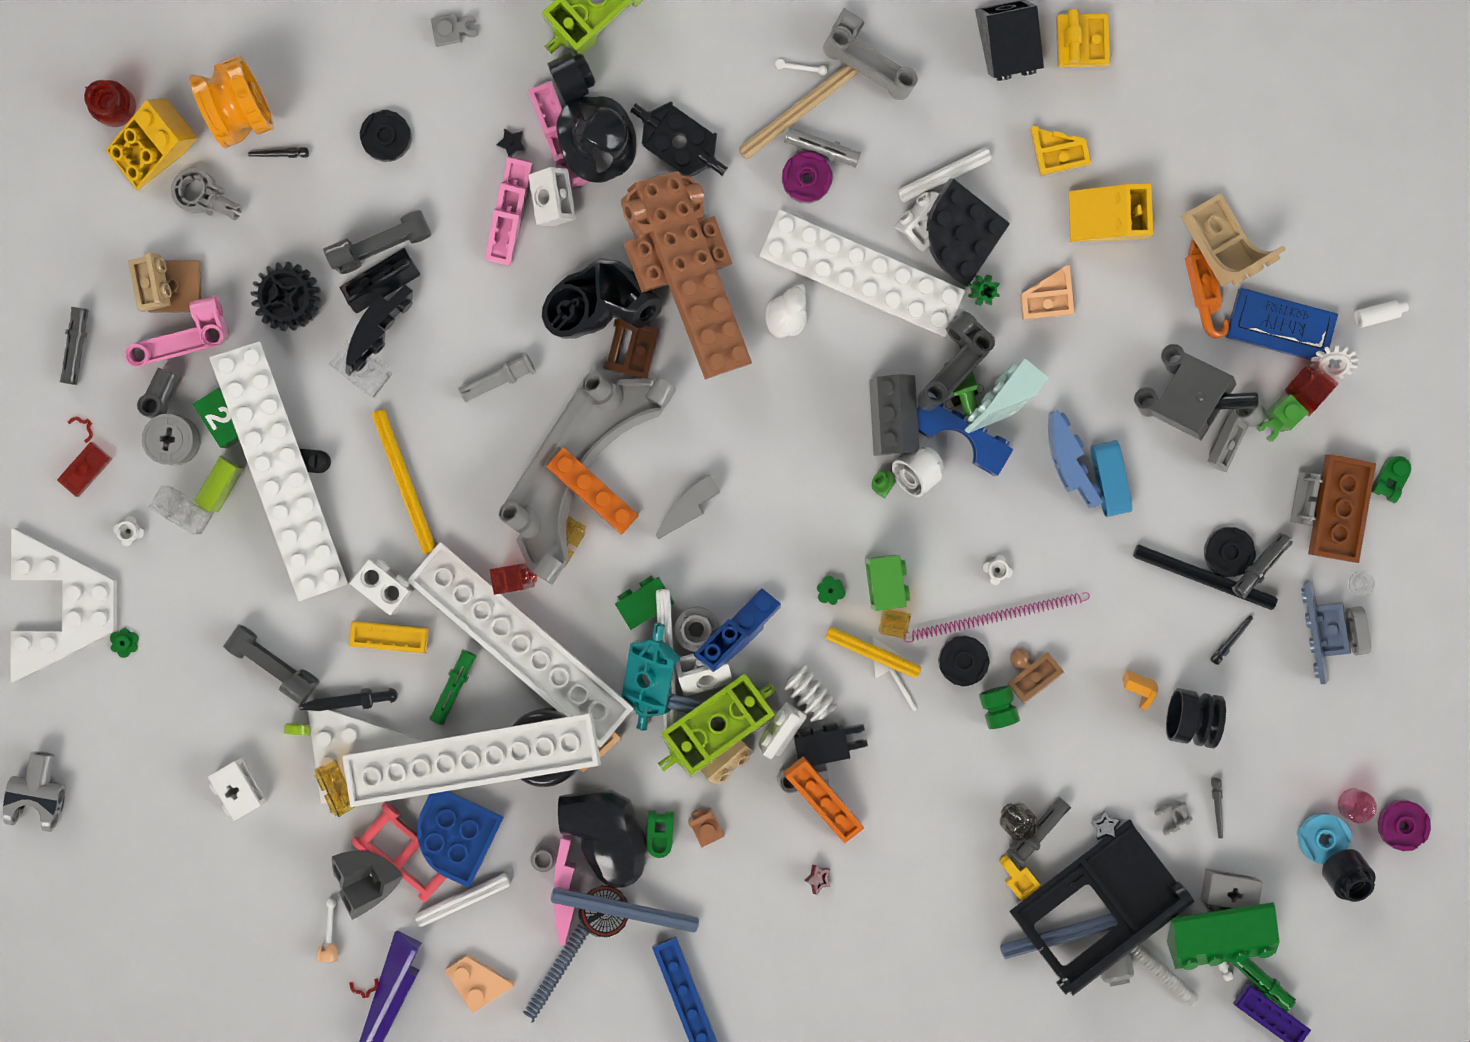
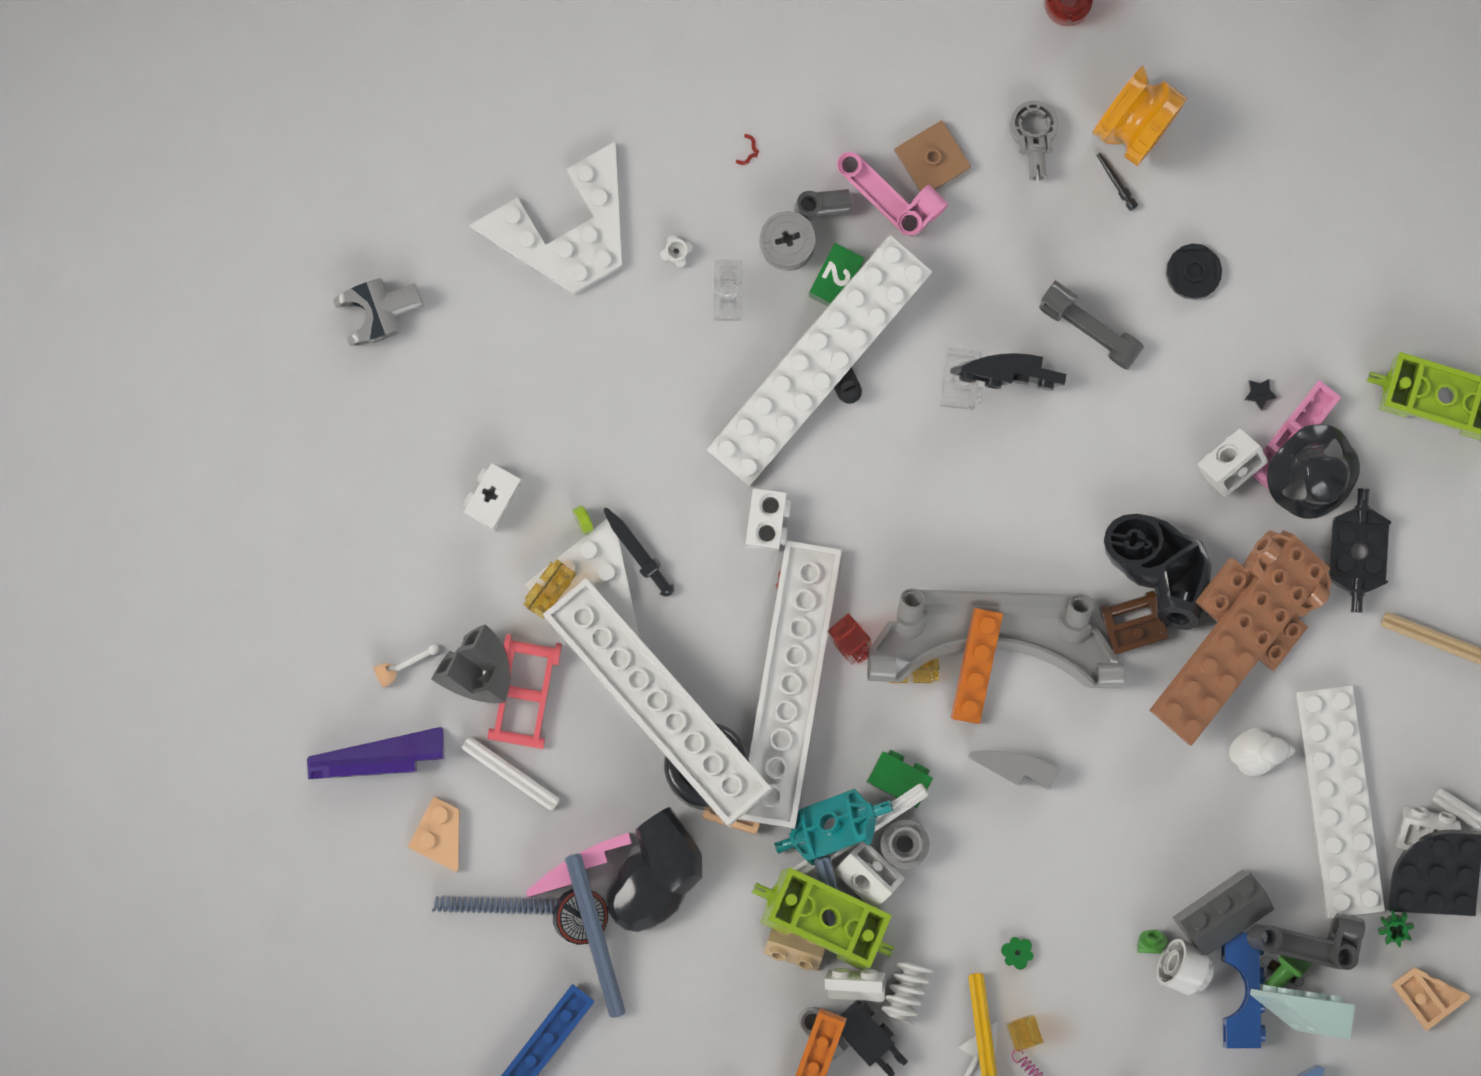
camera: 60 degrees right, 5 degrees down
(73, 350) = (821, 99): dark grey pin -> none
(84, 469) = (710, 176): clear red plate -> none
(130, 642) = (574, 312): green plant -> none
(150, 282) = (924, 136): tan bracket -> none
(151, 142) = (1054, 59): yellow slope -> none
(218, 484) = (771, 309): lime brick -> none
(276, 301) = (998, 275): black gear -> none
(295, 685) = (626, 495): dark grey piece -> none
(361, 992) = (364, 729): clear red piece -> none
(380, 280) = (1054, 346): black slope -> none
(388, 637) = (721, 554): yellow plate -> none
(403, 481) = (878, 481): yellow axle -> none
(440, 714) = (744, 641): green pin -> none
(449, 31) = (1330, 271): light grey plate -> none
(455, 835) = (571, 729): blue plate -> none
(508, 373) = (1040, 519): light grey pin -> none
(509, 211) = (1194, 429): bright pink slope -> none
(543, 859) = (595, 828): light grey plate -> none
(571, 76) = (1357, 414): black piece -> none
(660, 842) = (676, 930): green plate -> none
(705, 826) = (718, 966): nougat bracket -> none
(738, 631) = (927, 886): blue slope -> none
(793, 137) = (1443, 725): light grey pin -> none
(810, 164) = (1409, 682): magenta plate -> none
(886, 582) = (1060, 1000): bright green brick -> none

